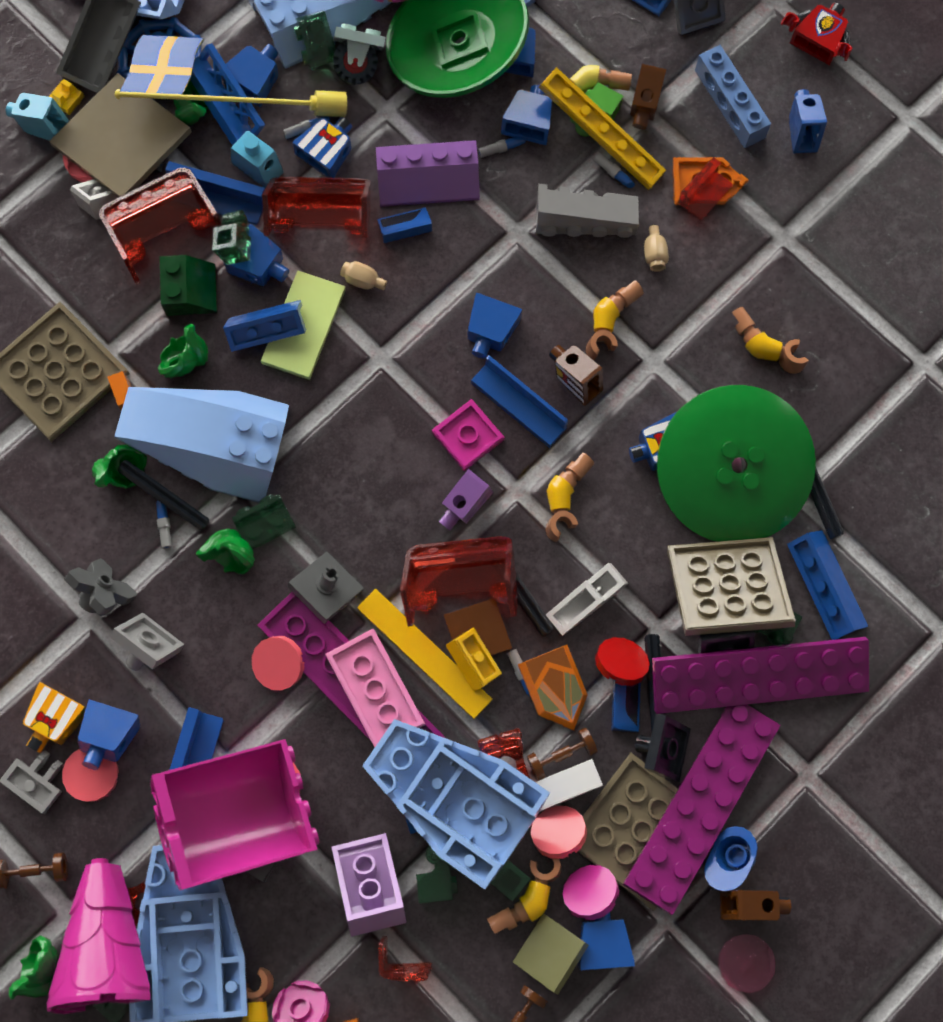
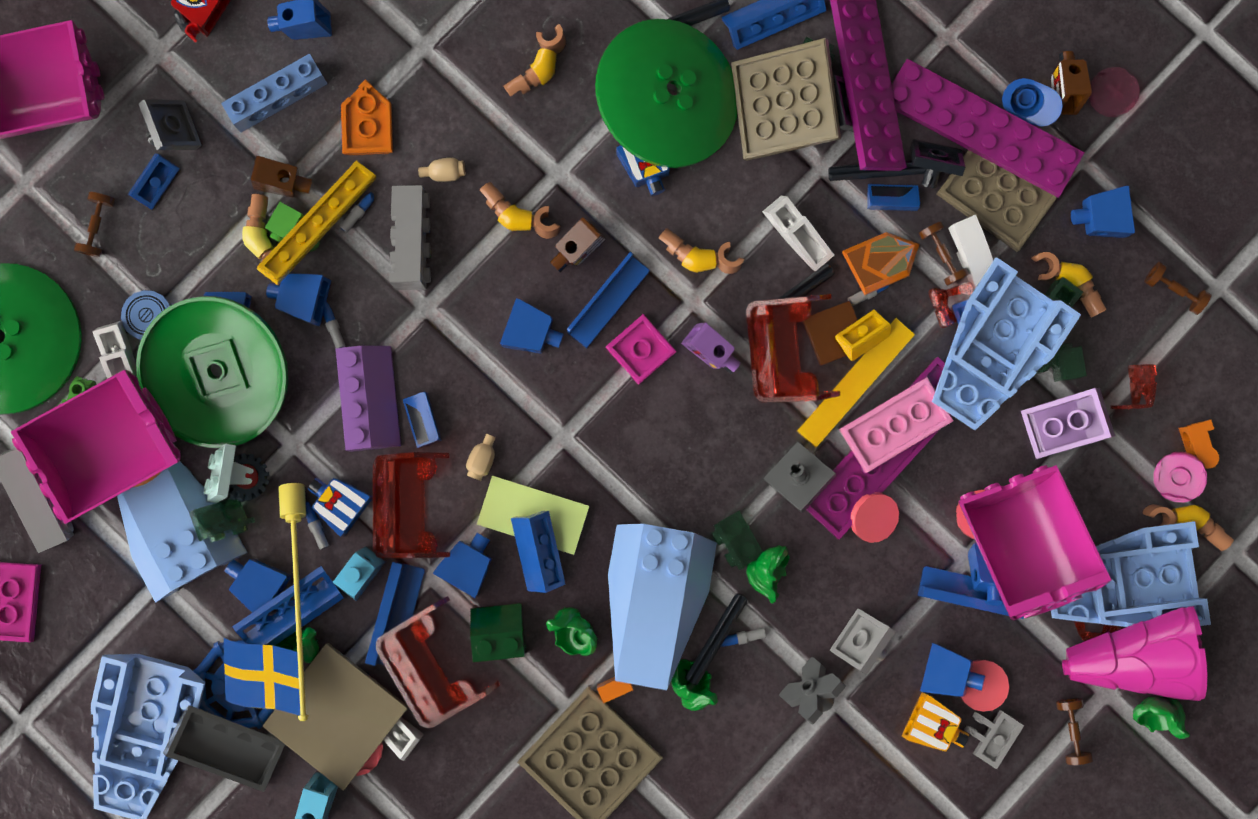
camera: 100 degrees left, 10 degrees up
(67, 96) = (287, 780): yellow tile -> none
(231, 239) = (459, 587): clear green brick -> none
(550, 953) = (1120, 259): olive tile -> none
(558, 832) = (1018, 251): coral tile -> none
(591, 892) = (1066, 225): dark pink tile -> none
(622, 661) = (858, 199): red tile -> none
(705, 190) = (381, 120): clear red panel -> none

